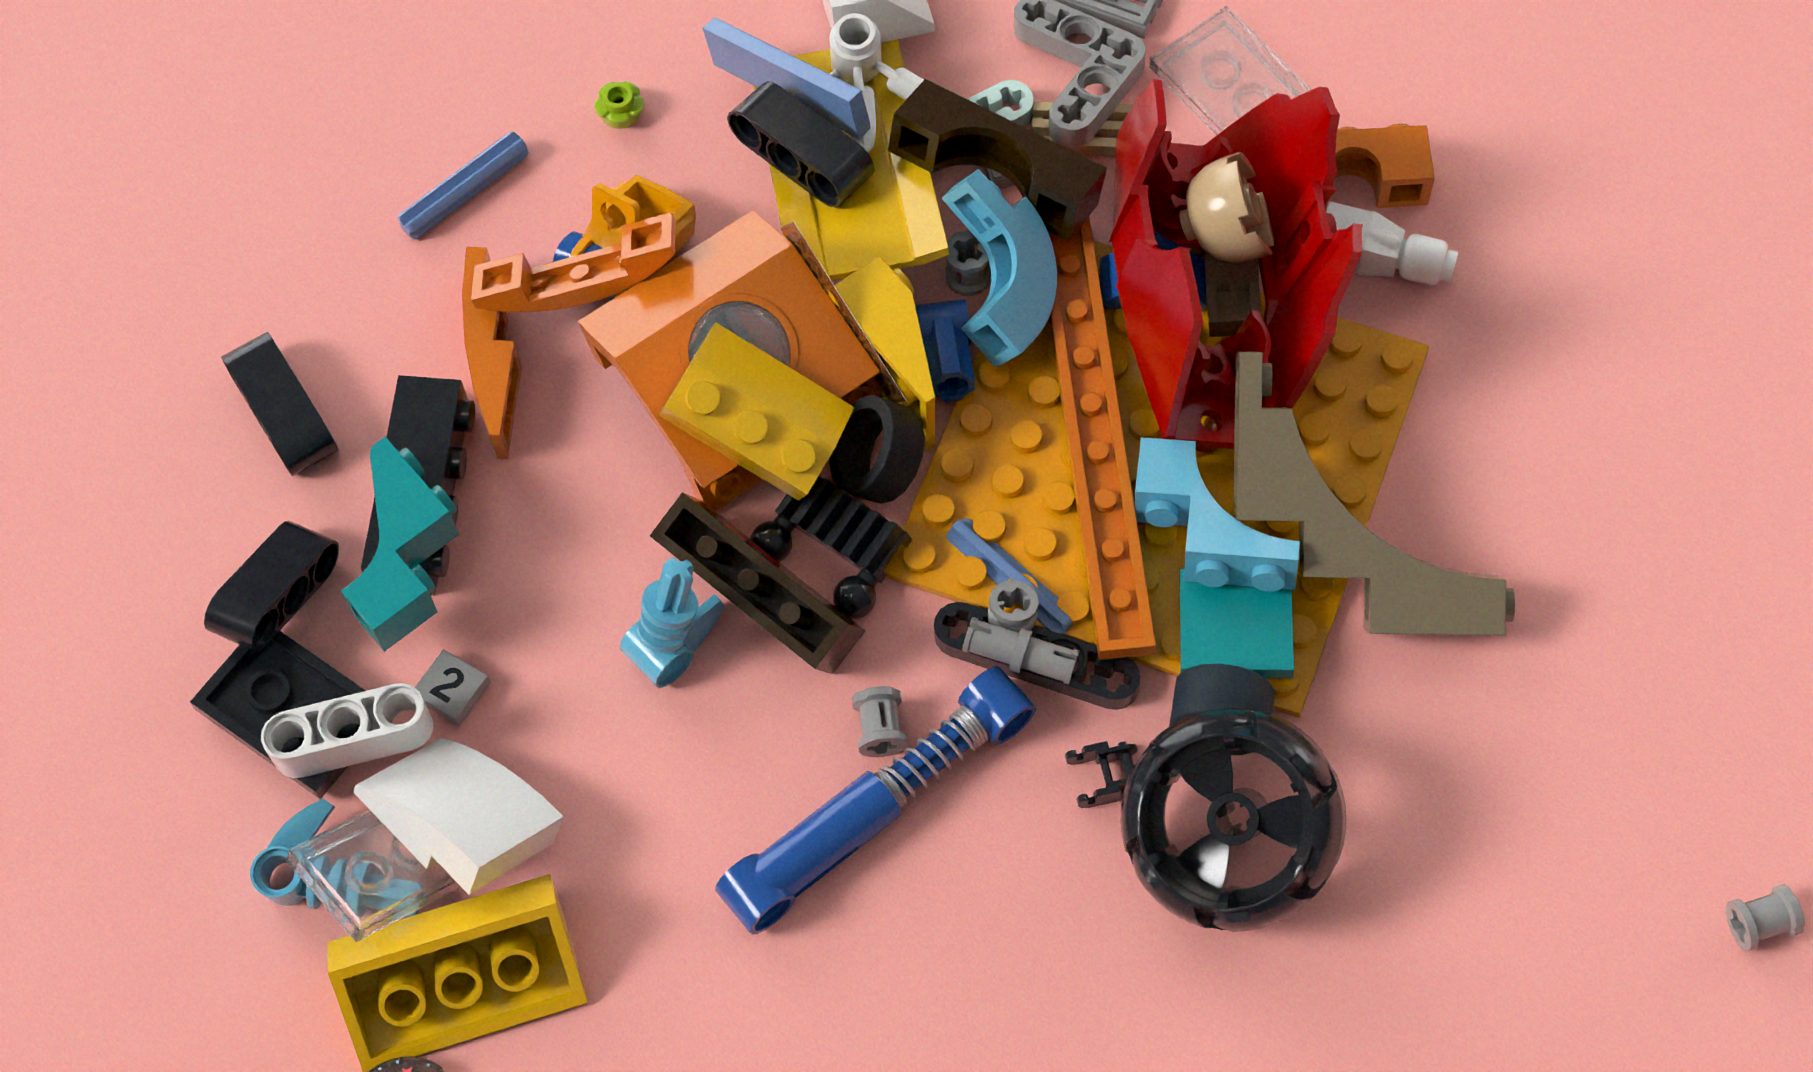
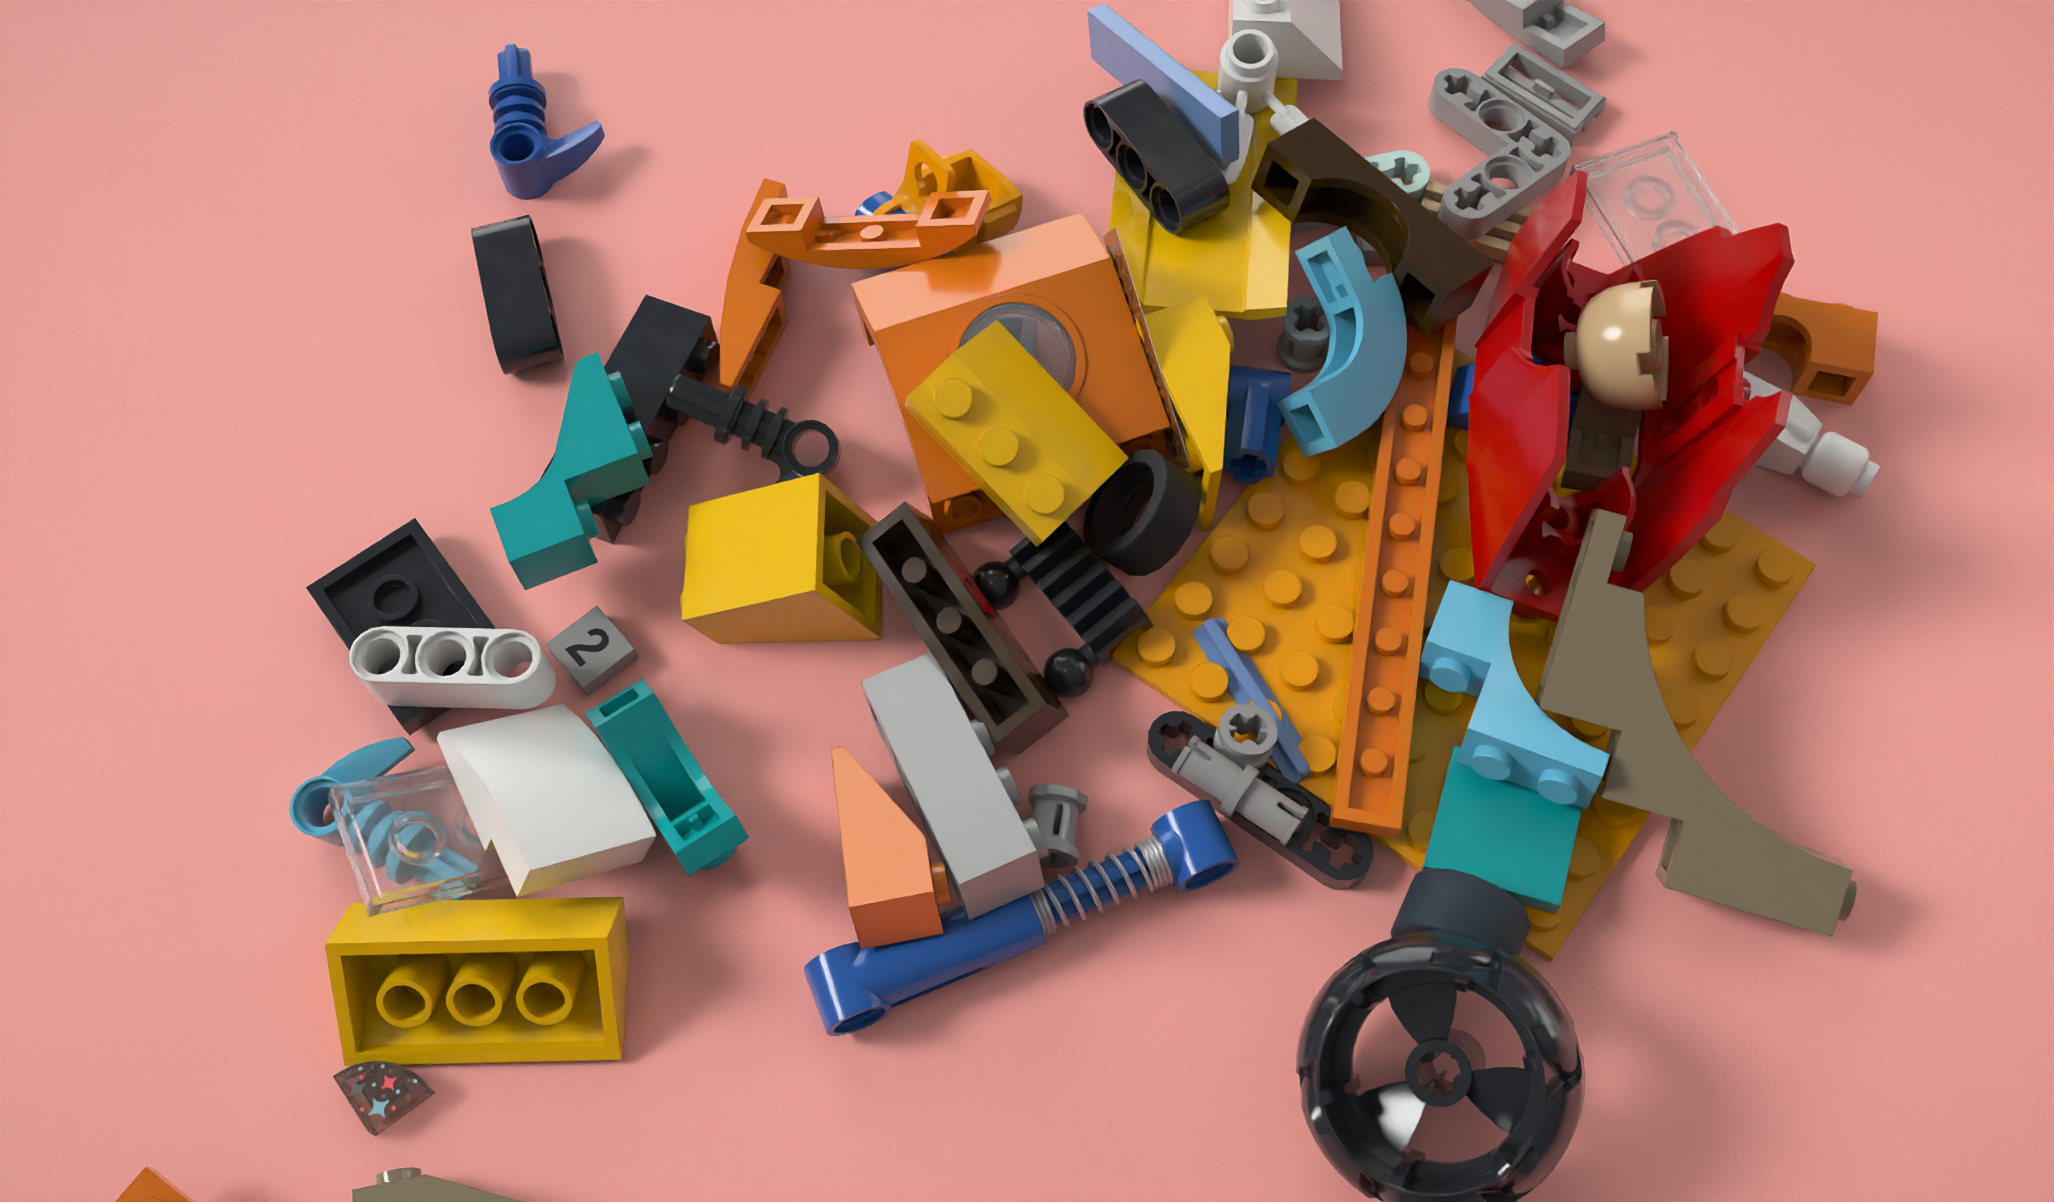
camera: 15 degrees right, 0 degrees up
(231, 258) = (519, 146): none -> blue piece
(271, 586) = (432, 485): black beam -> none
(462, 185) = (787, 118): medium blue axle -> none
(535, 463) = (752, 423): none -> black piece
(582, 571) = (780, 566): none -> yellow slope
(586, 795) = (667, 779): none -> teal arch
(619, 114) = (979, 76): lime plate -> none
(670, 625) = (847, 647): medium azure piece -> none
(757, 781) = (886, 862): none -> orange slope
(791, 708) = (955, 786): none -> light grey brick
(1102, 755) = (1301, 939): black piece -> none

